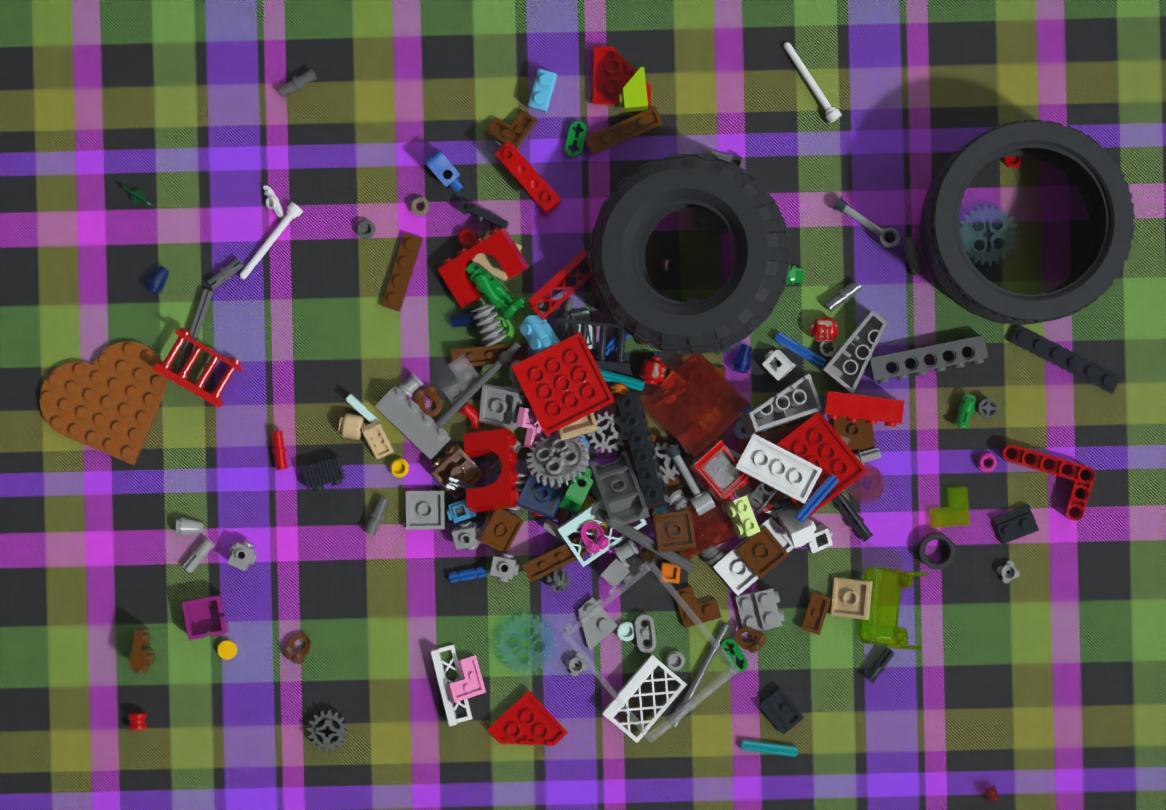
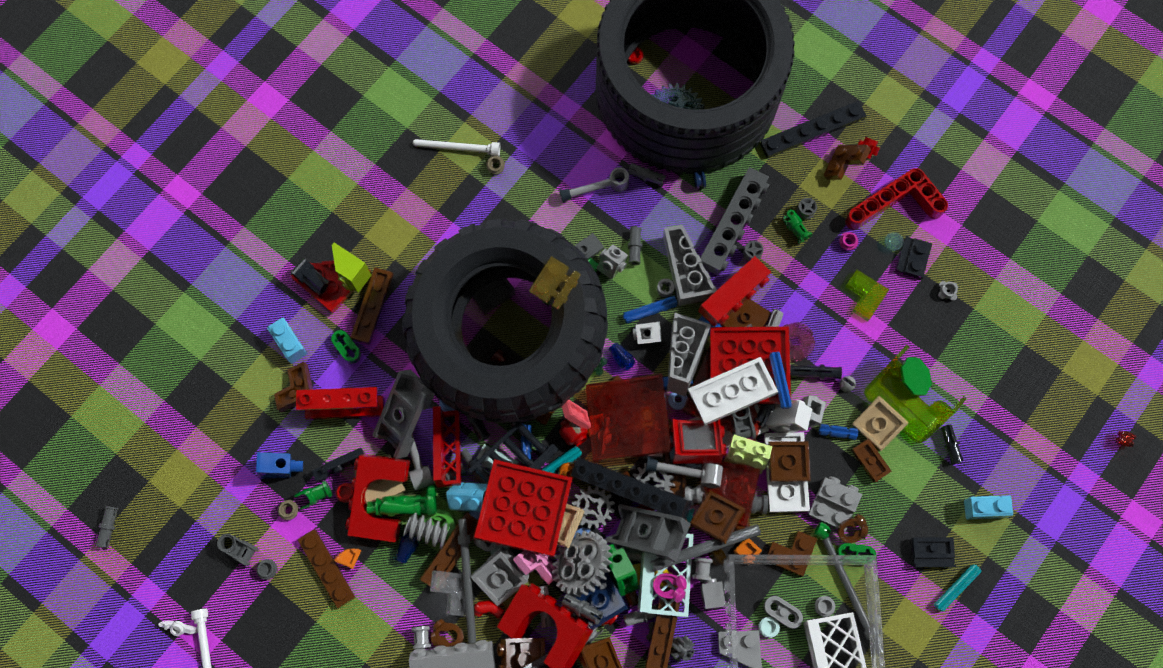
camera: 50 degrees left, 15 degrees down
(362, 196) = (240, 551): none -> dark grey piece
(423, 281) = (348, 557): none -> orange tile
(447, 216) = (315, 494): none -> green piece
(525, 284) = (420, 476): none -> light grey piece
(525, 487) = (582, 608): none -> dark grey pin
(573, 233) = (410, 398): none -> dark grey piece
(605, 65) = (307, 274): none -> black piece
(665, 365) = (576, 414): none -> coral plate
(730, 615) = (822, 531): none -> green hinge
(739, 271) = (549, 280): none -> clear yellow plate
(807, 258) = (590, 246): none -> dark grey plate
(813, 290) = (612, 261): none -> light grey brick
(816, 122) = (495, 159): none -> dark tan plate
(819, 571) = (838, 431): none -> blue axle
(824, 329) = (649, 278): red head -> none
(849, 727) = (988, 507): none -> medium azure brick
(860, 550) = (845, 386): none -> light grey hinge
(912, 598) = (916, 376): none -> green piece
(918, 393) = (755, 248): none -> dark grey wheel
(936, 565) = (897, 317): black tyre -> none
(942, 303) = (699, 180): none -> dark blue bush
(1016, 498) = (894, 241): none -> clear light blue plate
(1056, 403) = (844, 156): none -> reddish brown plate
(1082, 417) = (872, 144): none -> red gear

